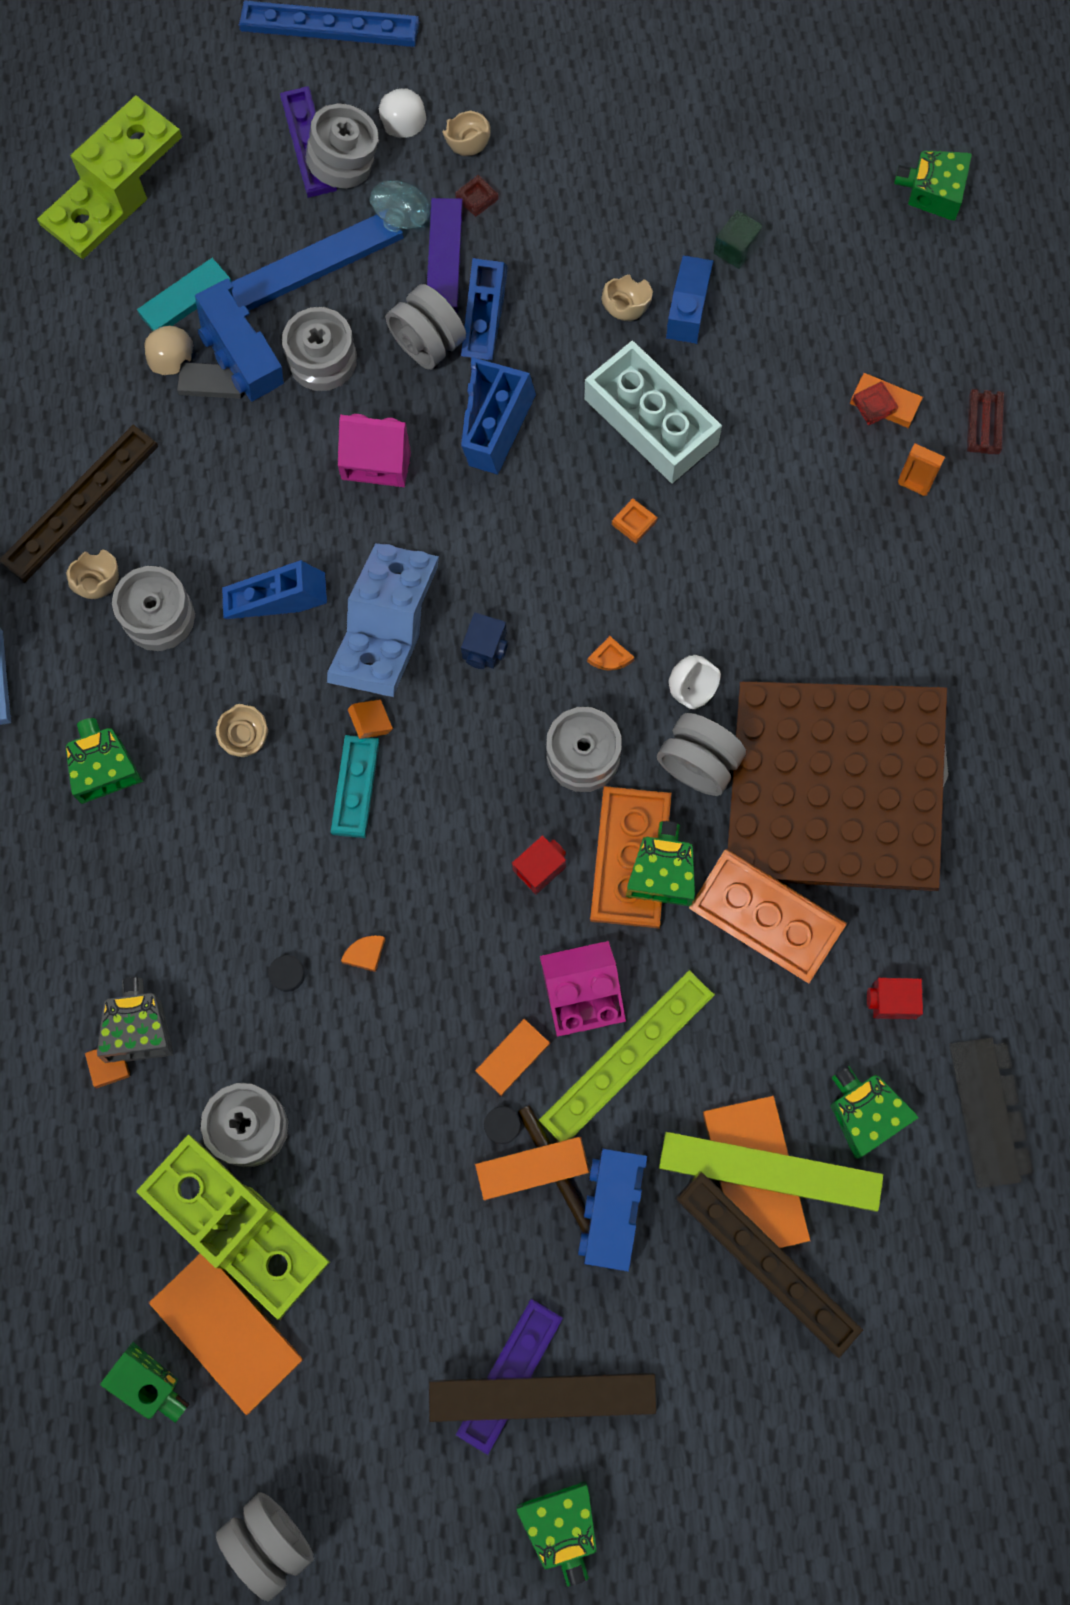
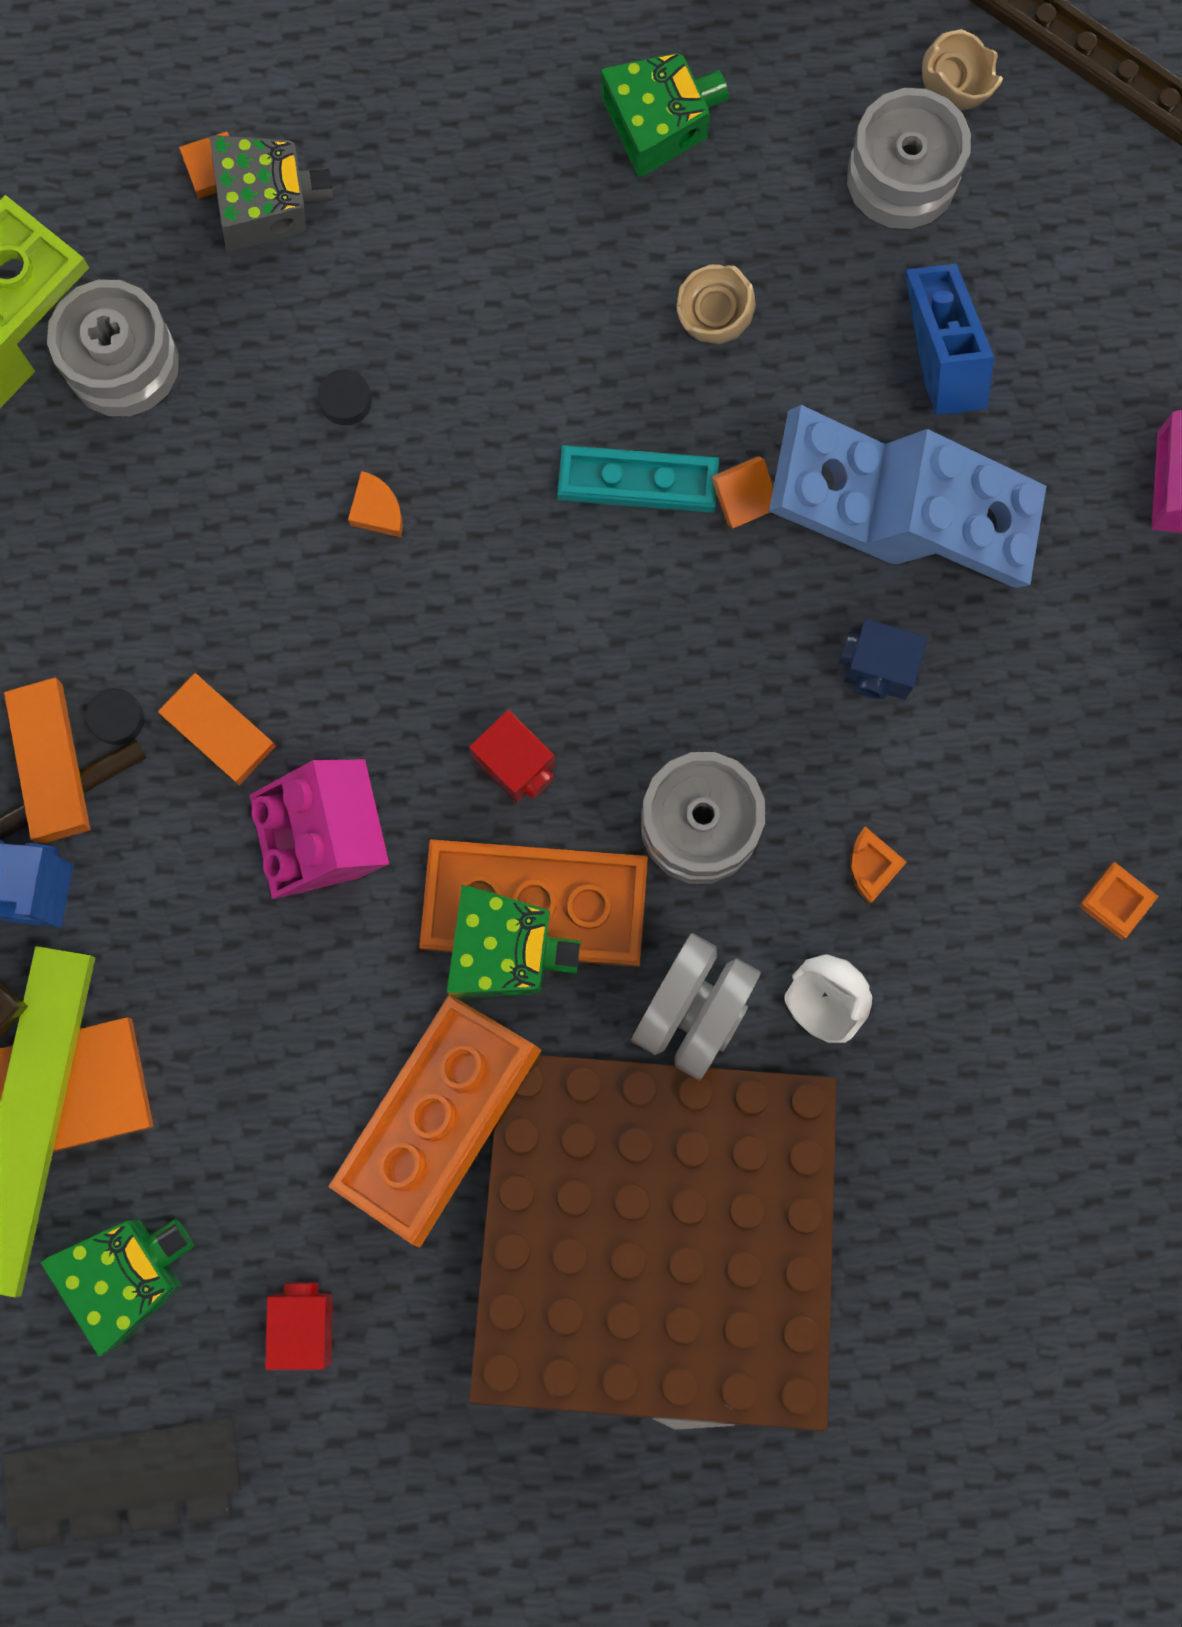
camera: 85 degrees right, 5 degrees up
(626, 1058) = (217, 902): lime tile -> none

